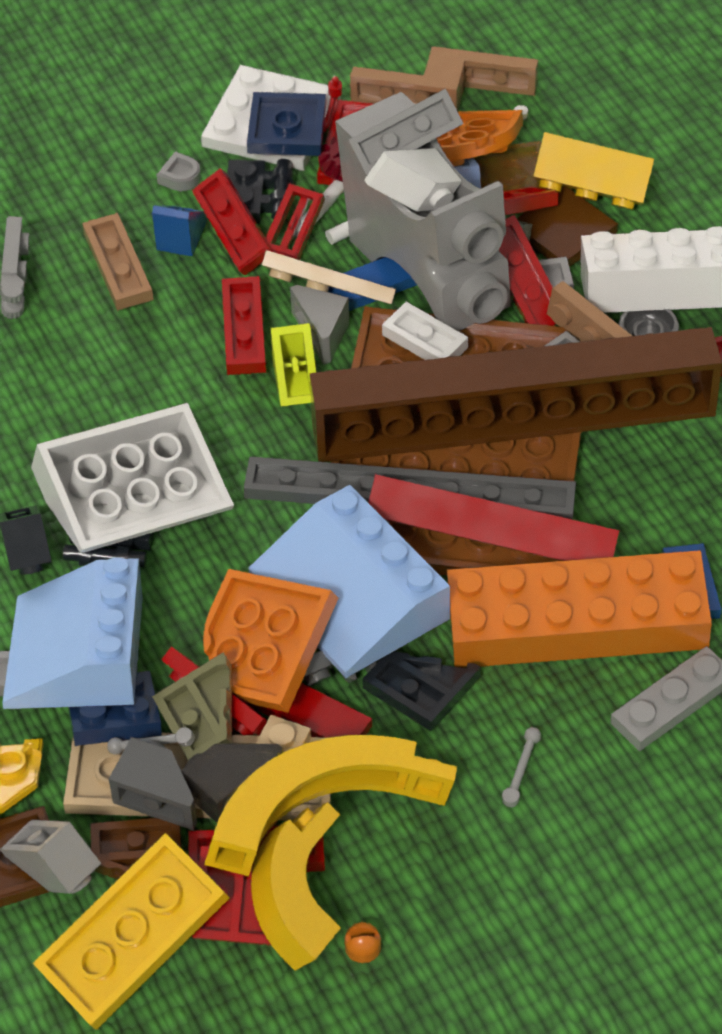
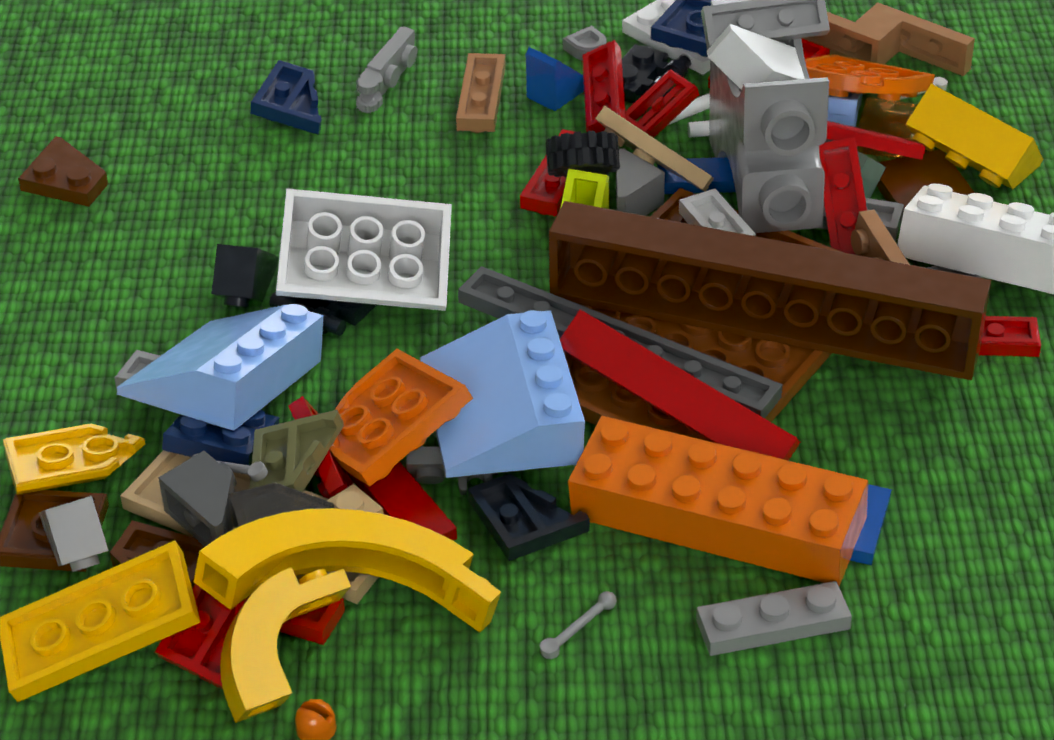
camera: 25 degrees right, 10 degrees down
(274, 308) = (582, 152): none -> black tyre

